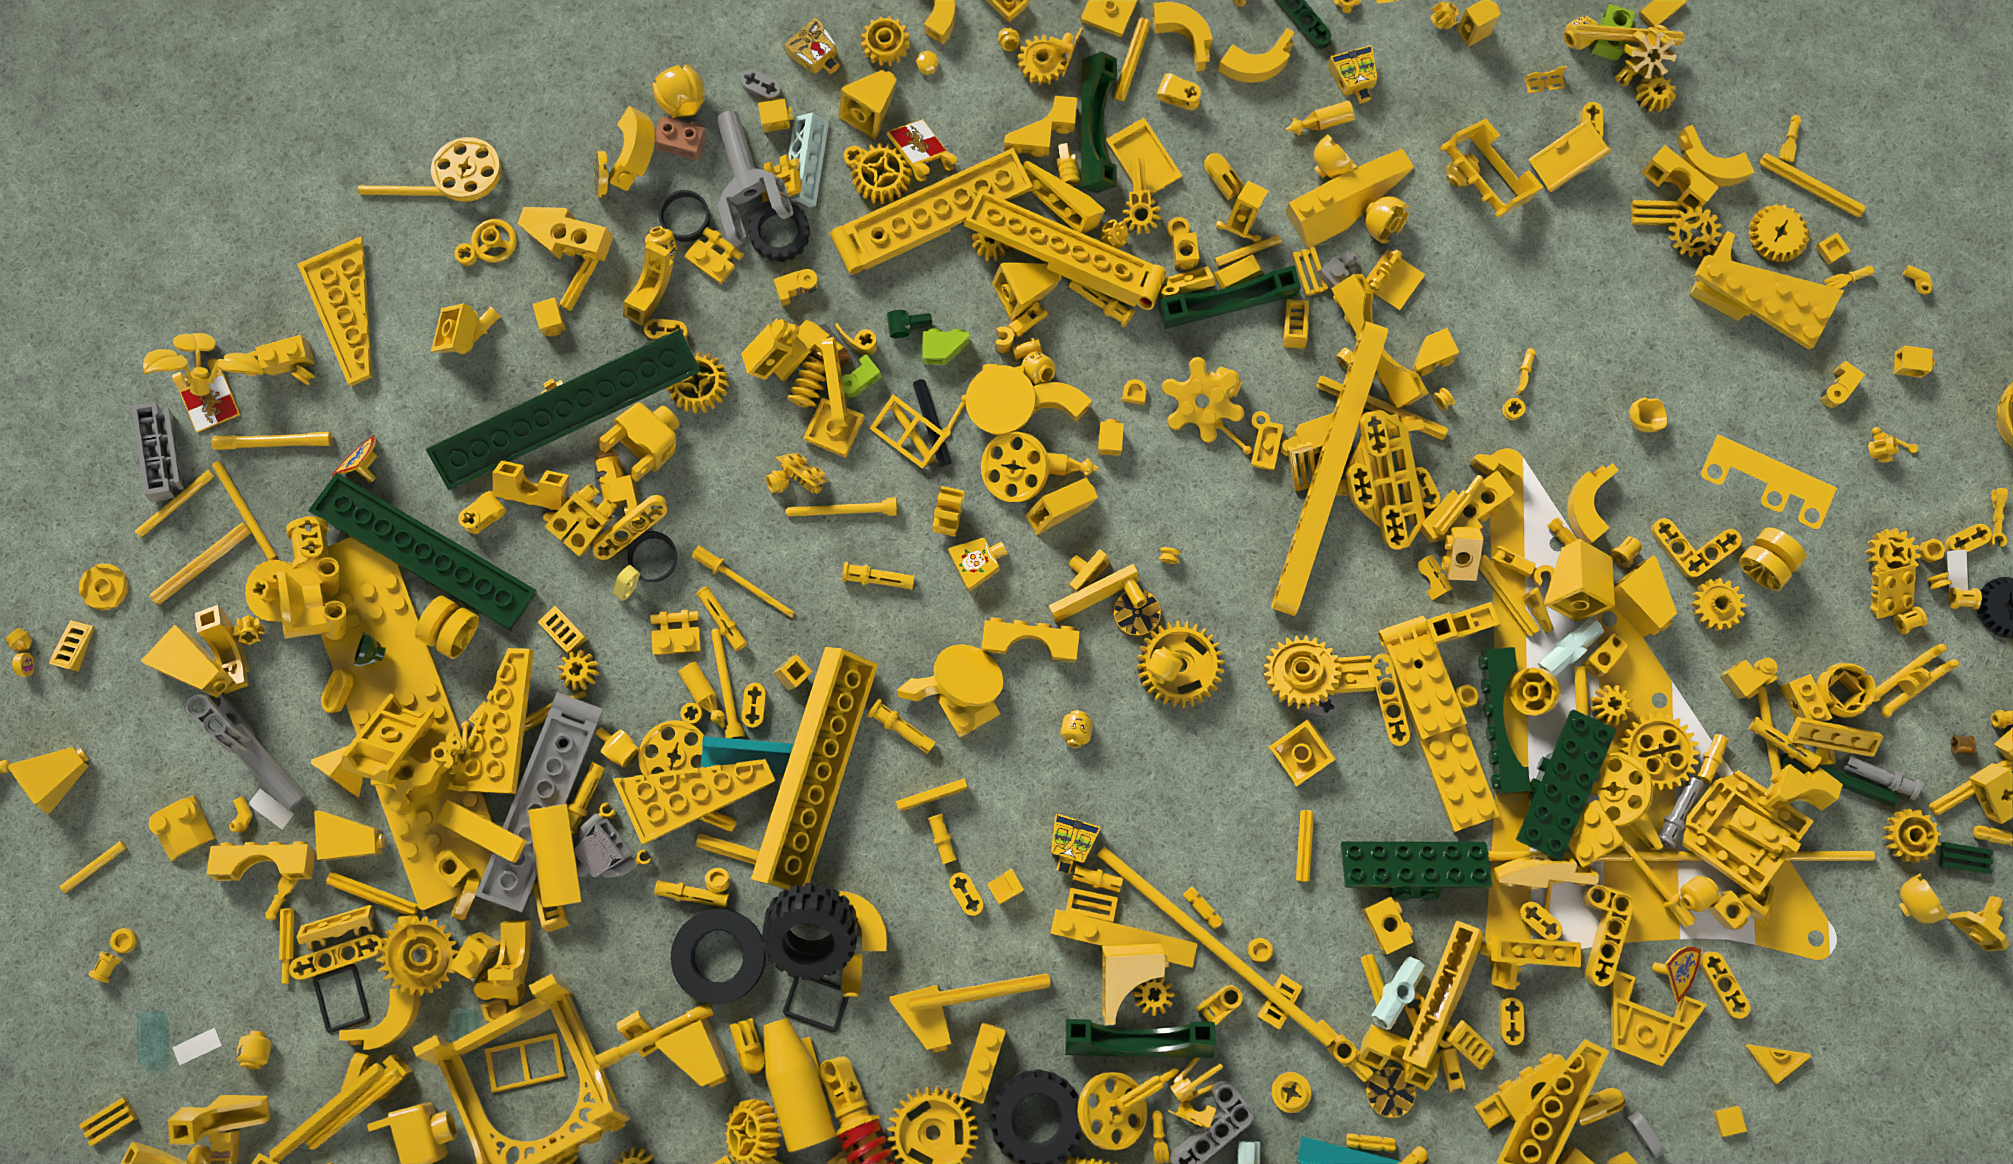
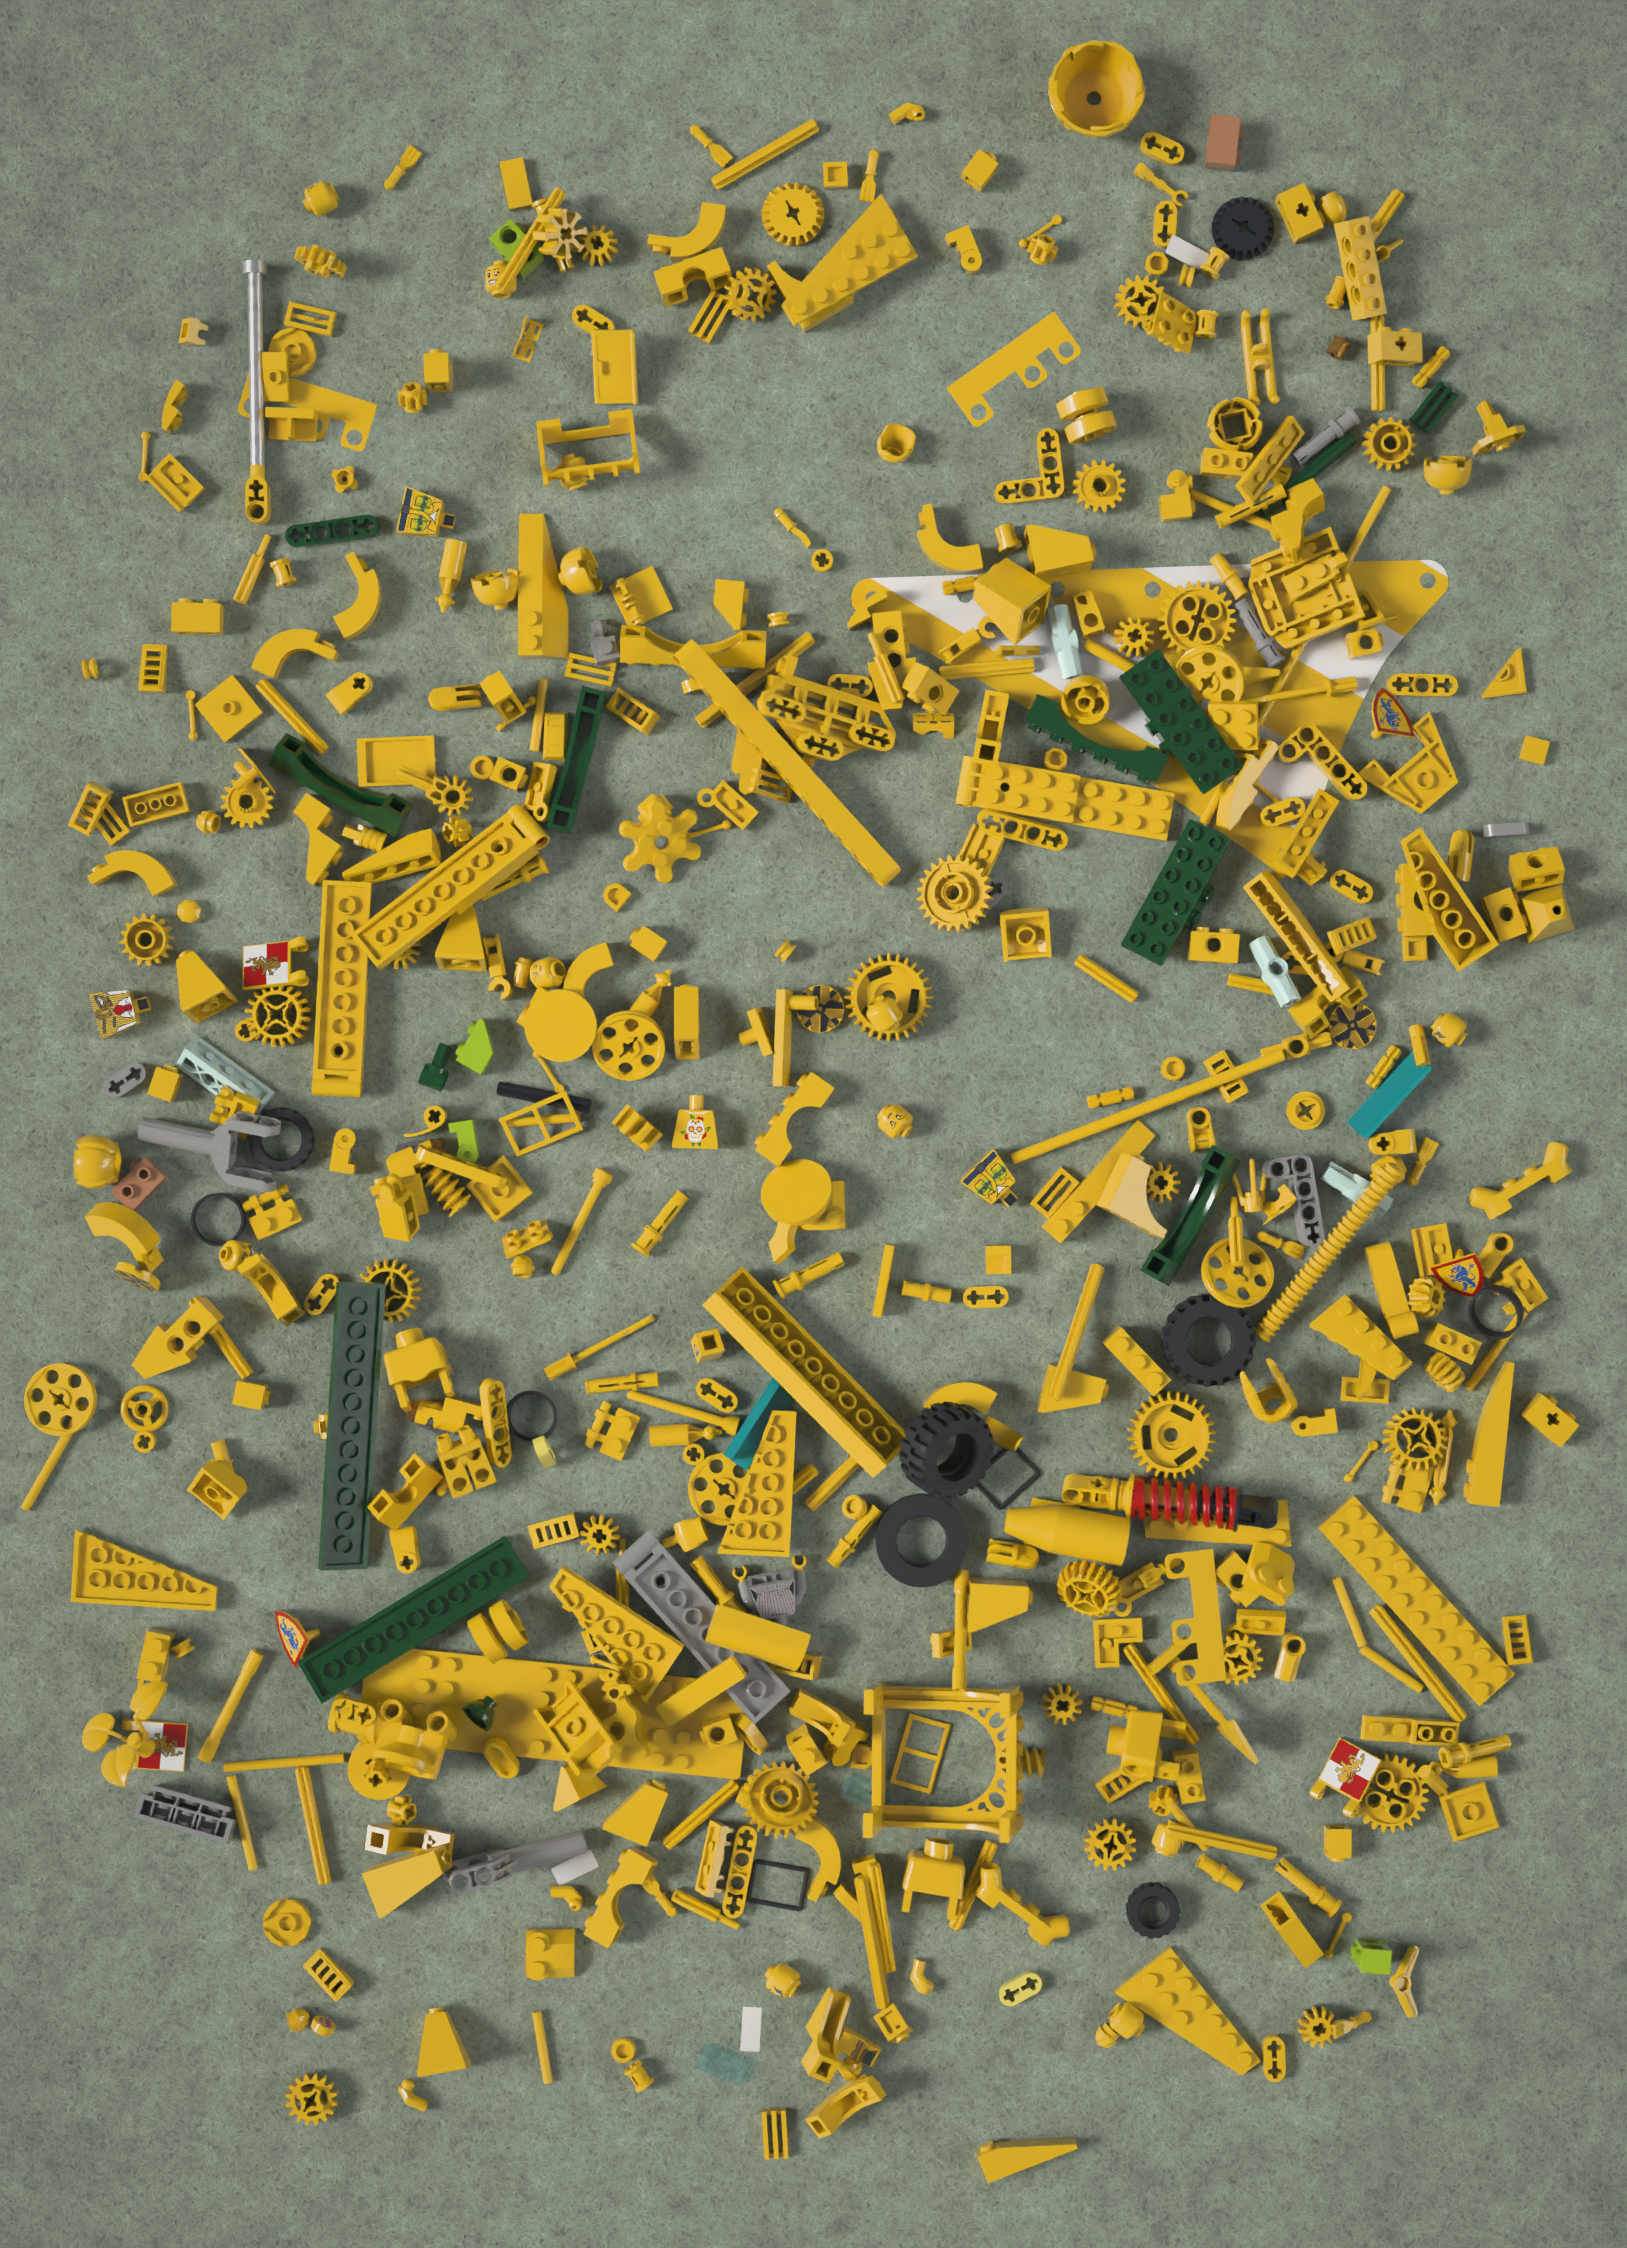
camera: 65 degrees left, 10 degrees up
(1097, 878) = (1035, 1175): yellow pin -> none
(1699, 894) = (1335, 661): yellow head -> none

